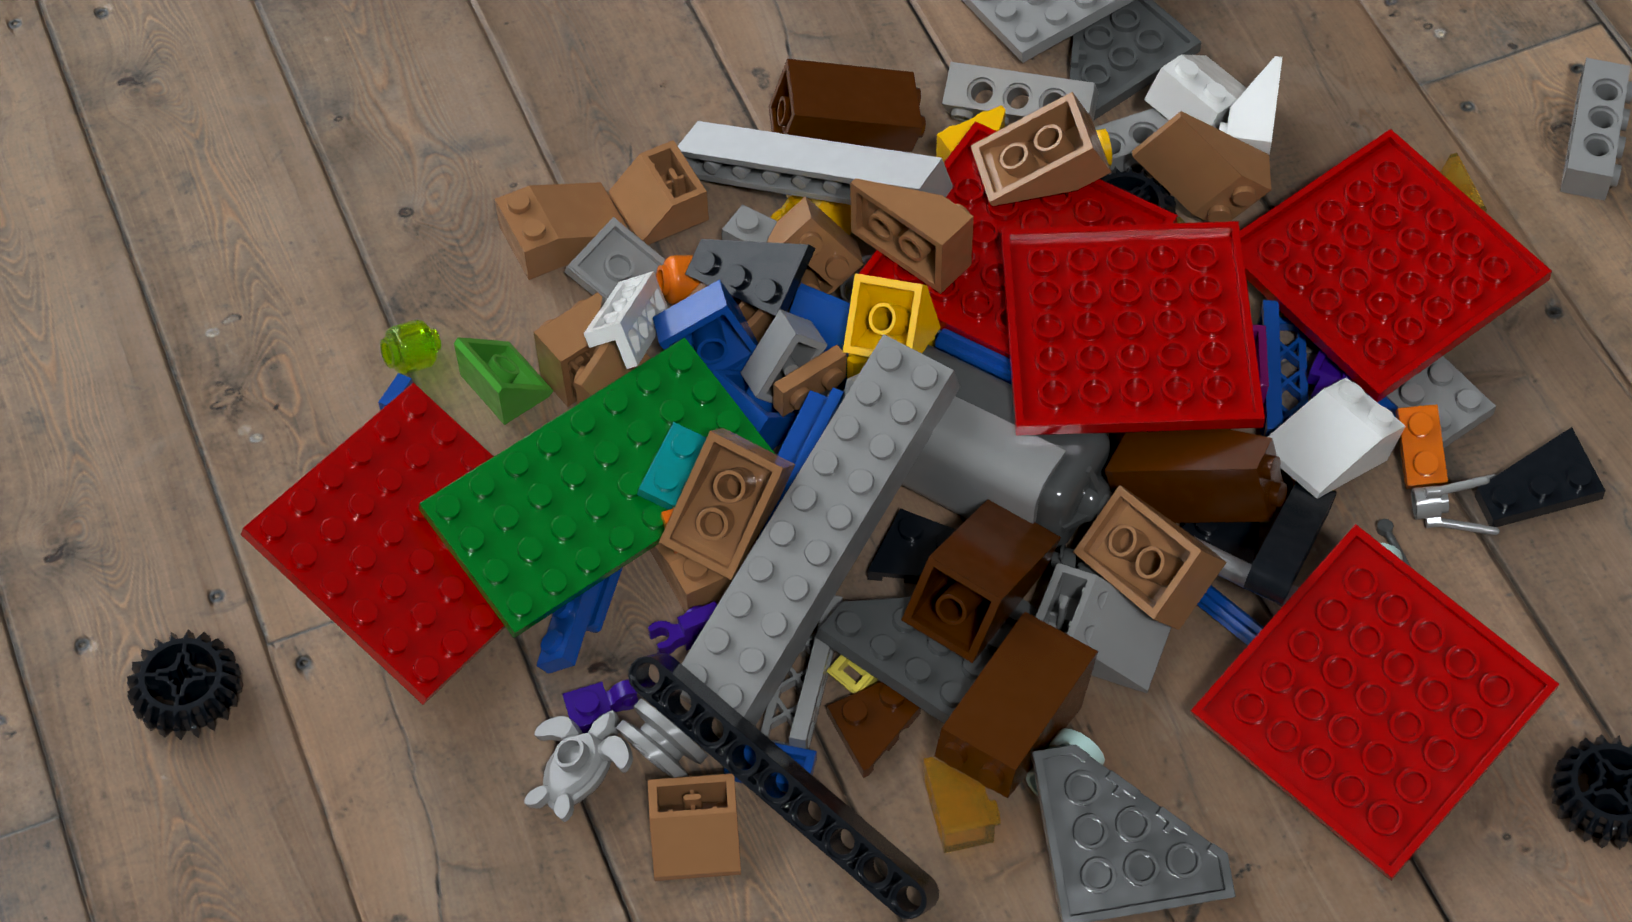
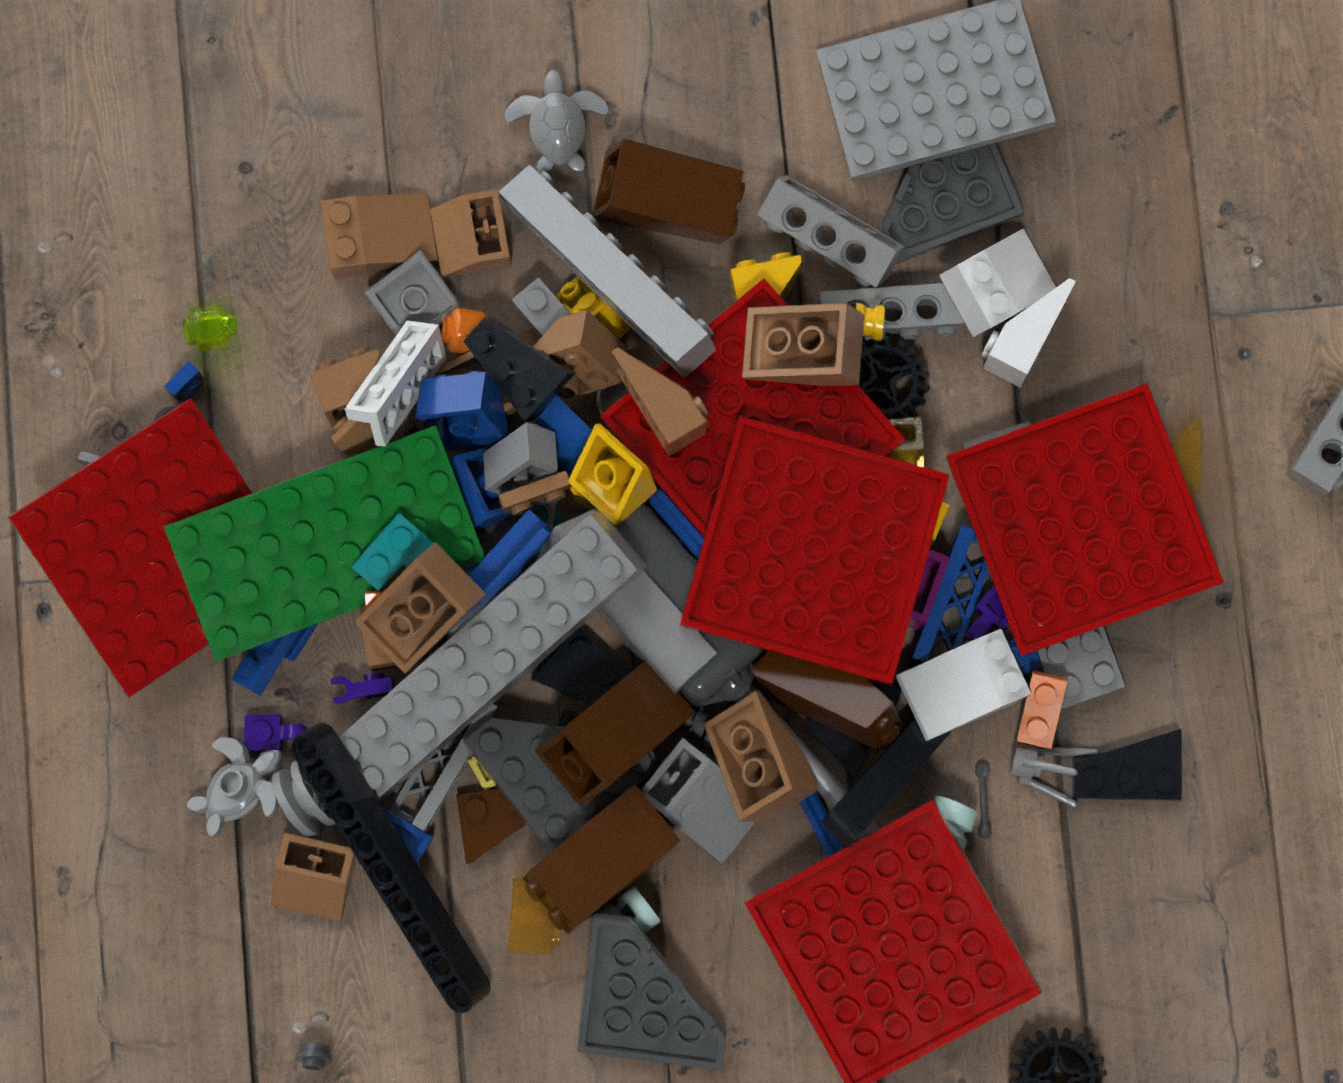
camera: 15 degrees right, 25 degrees up
(500, 376) = (282, 382): bright green slope -> none
(711, 86) = (557, 122): none -> light grey animal
(1205, 168) = (963, 380): medium nougat slope -> none

